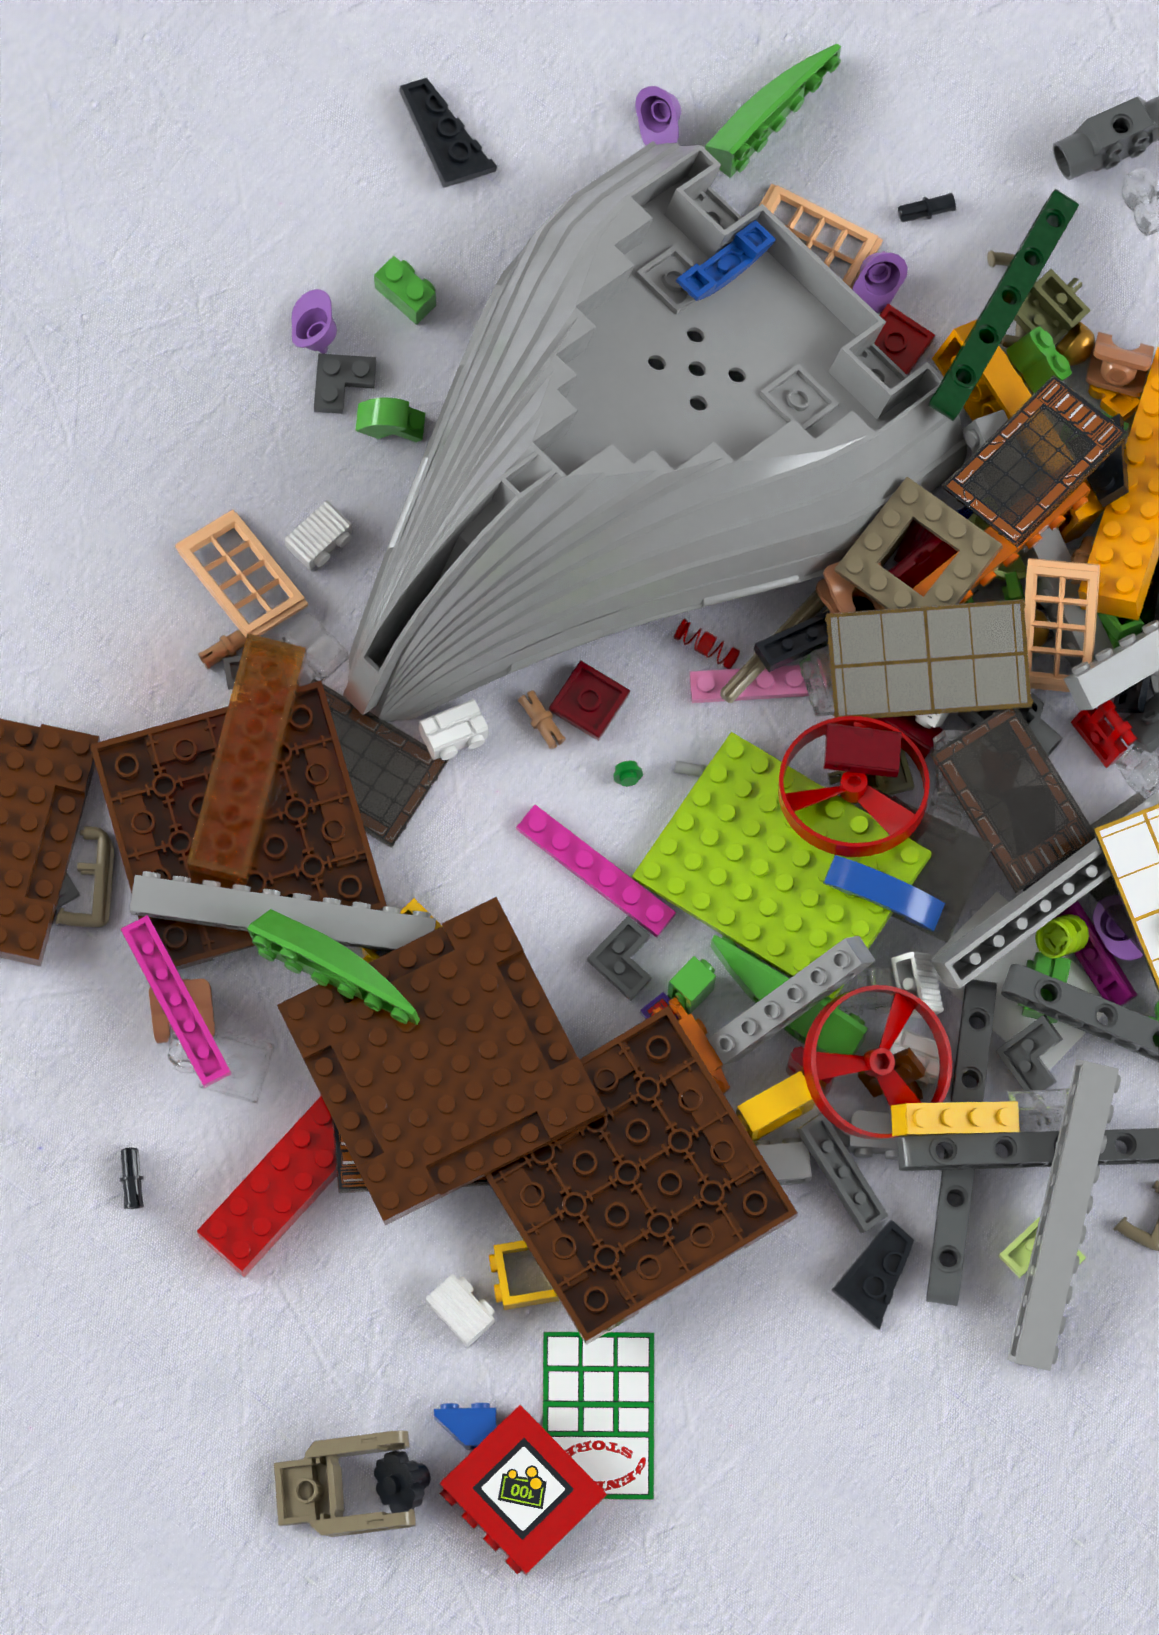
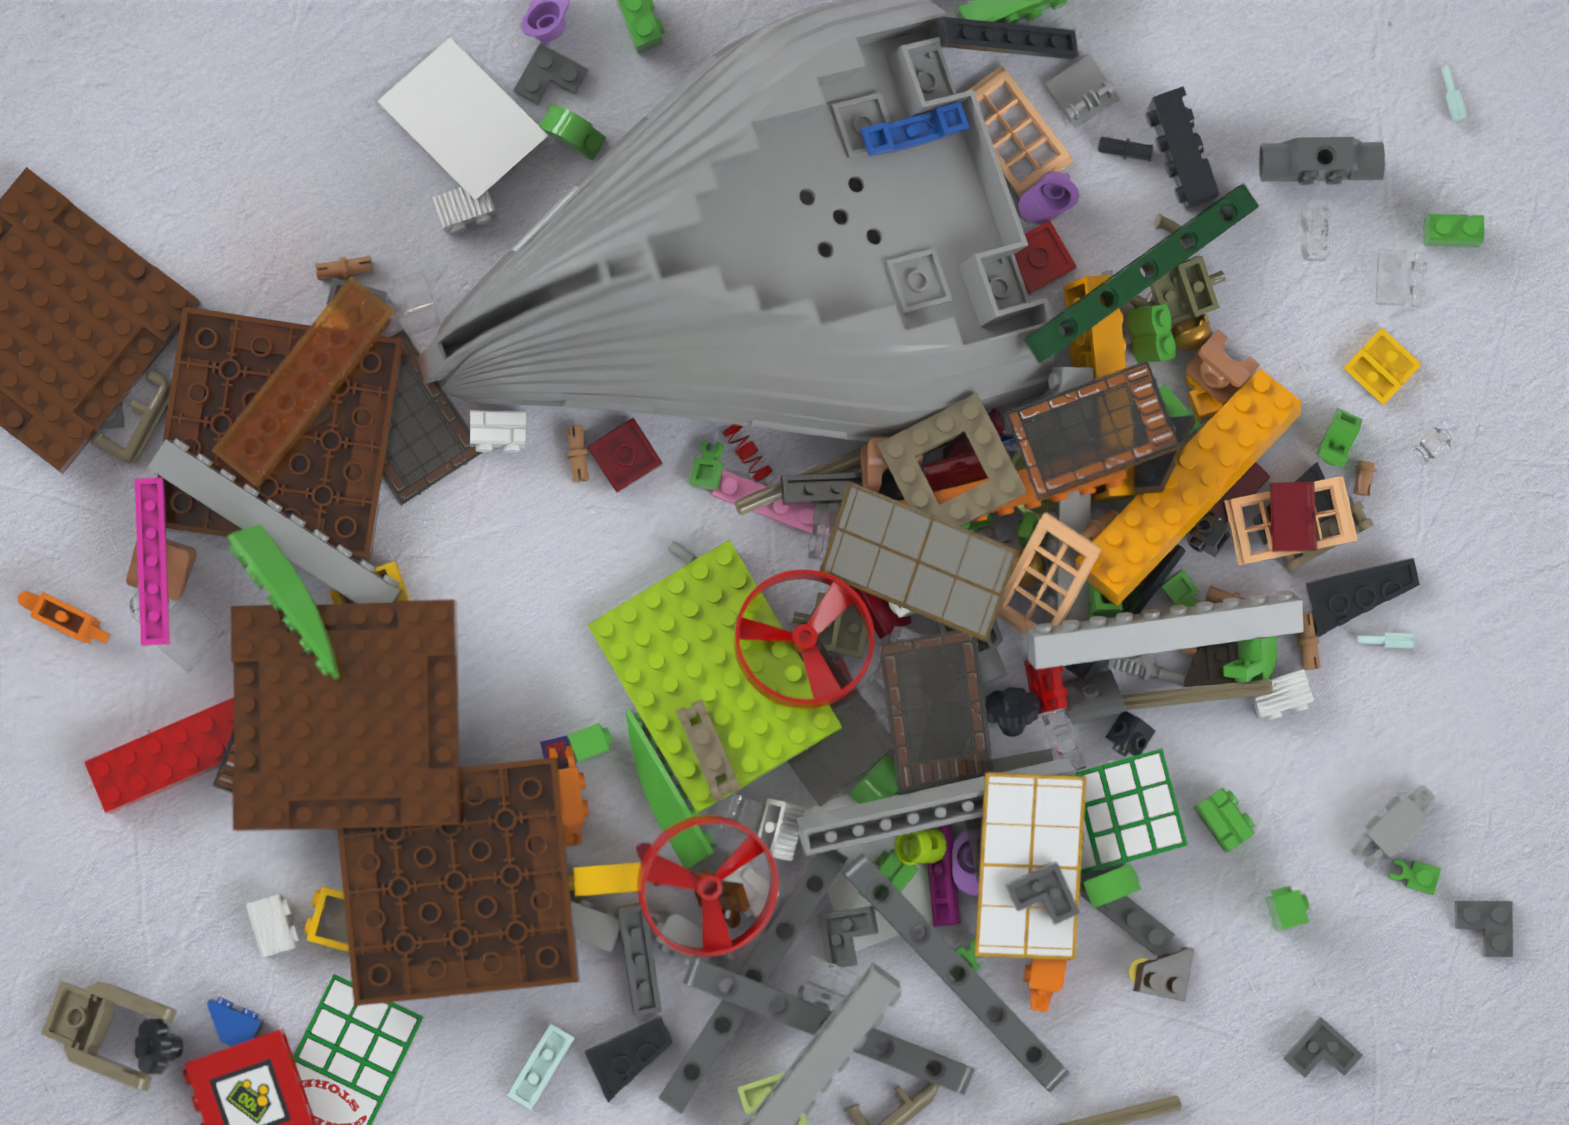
camera: 25 degrees right, 10 degrees up
(108, 1101) = (63, 617): none -> orange hinge
(131, 1178) = (55, 689): black axle -> none
(209, 534) = (374, 162): light nougat piece -> none
(277, 454) = (462, 118): none -> white sticker
(596, 870) = (560, 604): dark pink plate -> none
(614, 959) = (539, 690): dark grey plate -> none
(627, 773) = (626, 534): green plate -> none
(677, 677) = (707, 470): none -> bright green plate
(768, 148) = (1007, 38): none -> black plate
(791, 999) = (661, 799): light grey brick -> none
(795, 1325) = (540, 1066): none -> light aqua plate
(803, 924) = (708, 750): none -> dark tan plate
(859, 173) = (1082, 91): none -> light grey hinge
(862, 750) = (825, 612): dark red piece -> none
(884, 891) = (784, 743): blue slope -> none
(954, 1118) = (749, 963): yellow brick -> none
(980, 181) = (1181, 148): none -> black wedge
(990, 896) = (878, 783): none -> bright green brick
(1085, 769) = (1012, 709): none -> black plant

